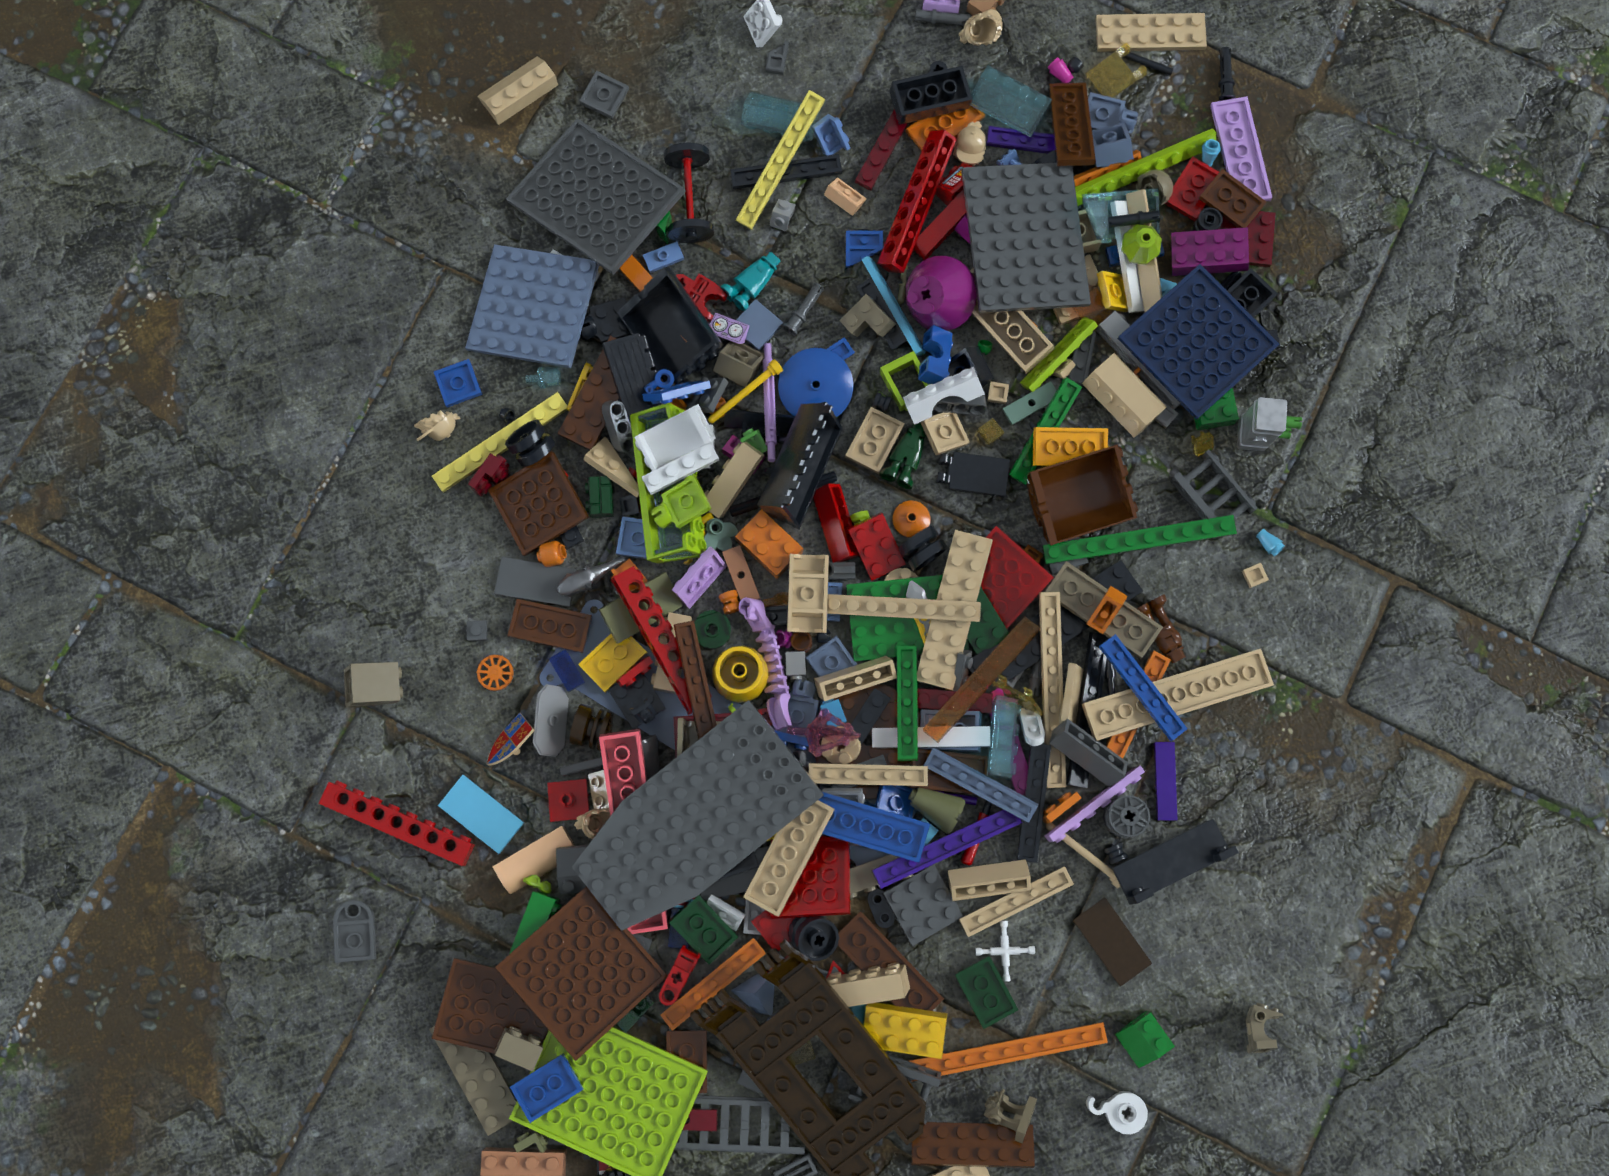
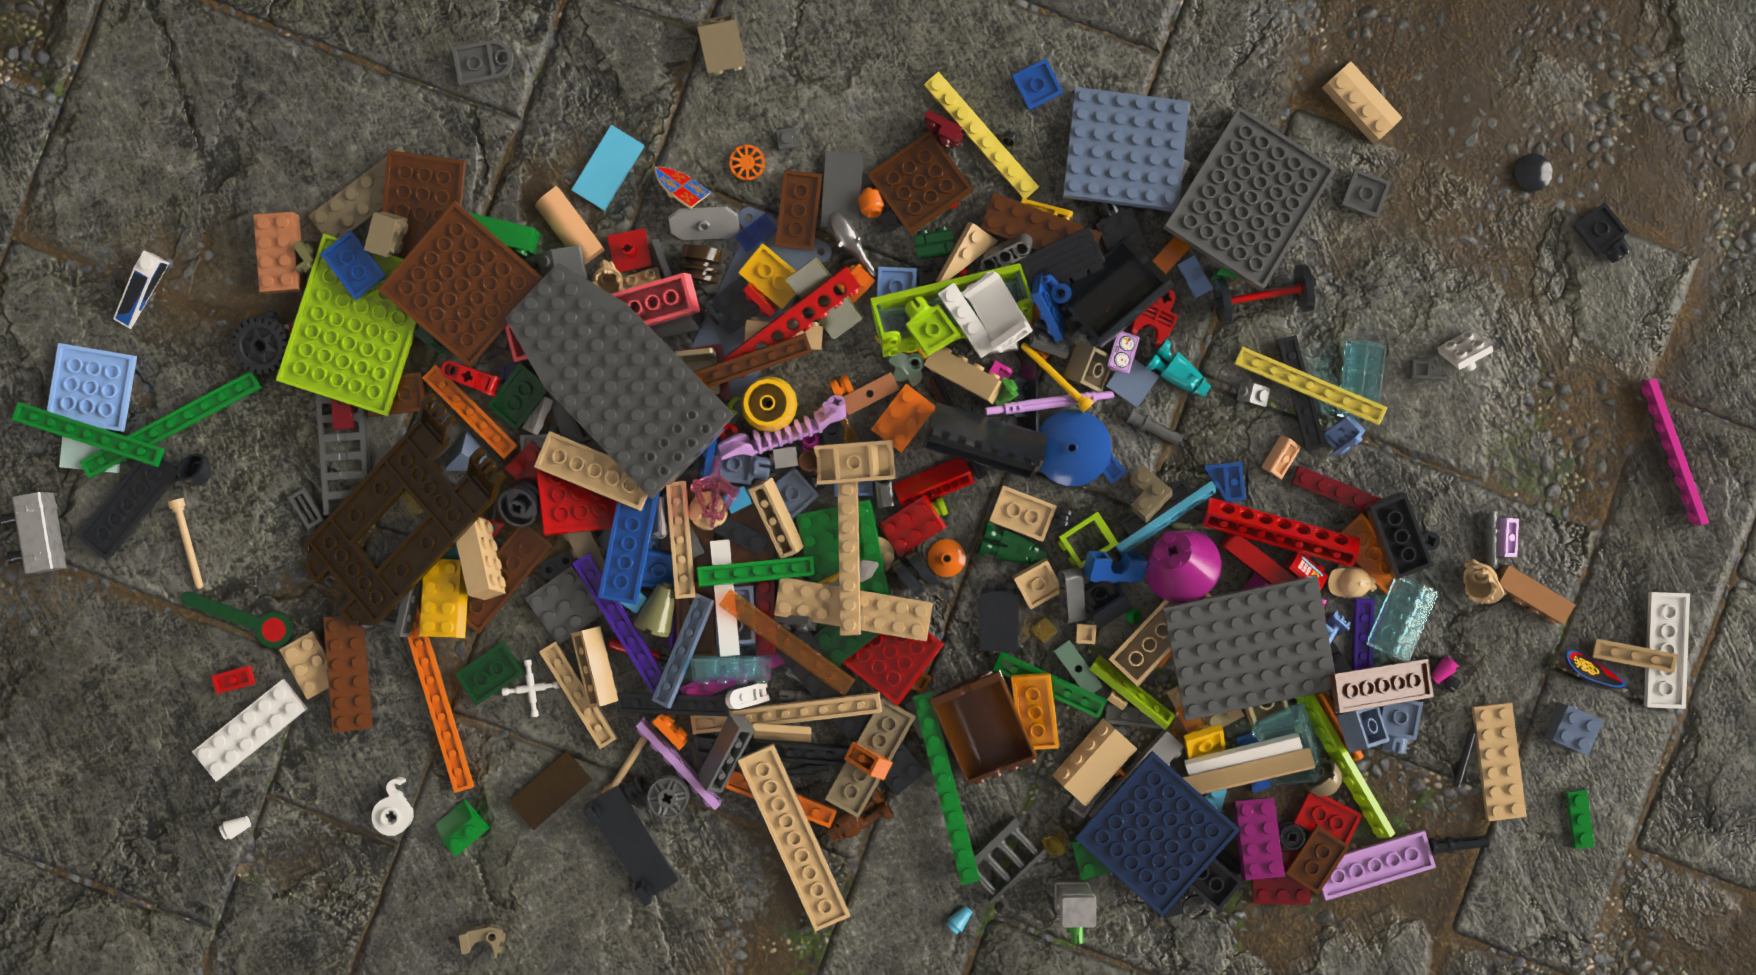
camera: 80 degrees right, 10 degrees up
(332, 799) = (604, 21): red brick -> none
(438, 425) = (988, 70): tan hair -> none
(530, 443) = (979, 166): black wheel -> none
(534, 880) = (544, 238): lime piece -> none
(546, 377) = (1053, 173): clear light blue piece -> none
(699, 577) = (861, 352): lavender plate -> none
(721, 635) = (816, 361): dark green plate -> none
(964, 385) = (1084, 597): white arch -> none
(1000, 1102) = (381, 690): dark tan tile -> none
(1024, 699) = (769, 687): clear yellow flag -> none
(1113, 74) = (1444, 725): clear yellow flag -> none
(1134, 219) = (1282, 763): black pin -> none
(1141, 244) = (1252, 759): lime cone -> none
(1143, 687) = (794, 802): blue plate -> none
(1165, 781) = (710, 831): dark purple tile -> none
(1210, 151) = (1368, 832): medium azure cone -> none
(1255, 575) = (924, 906): tan plate -> none

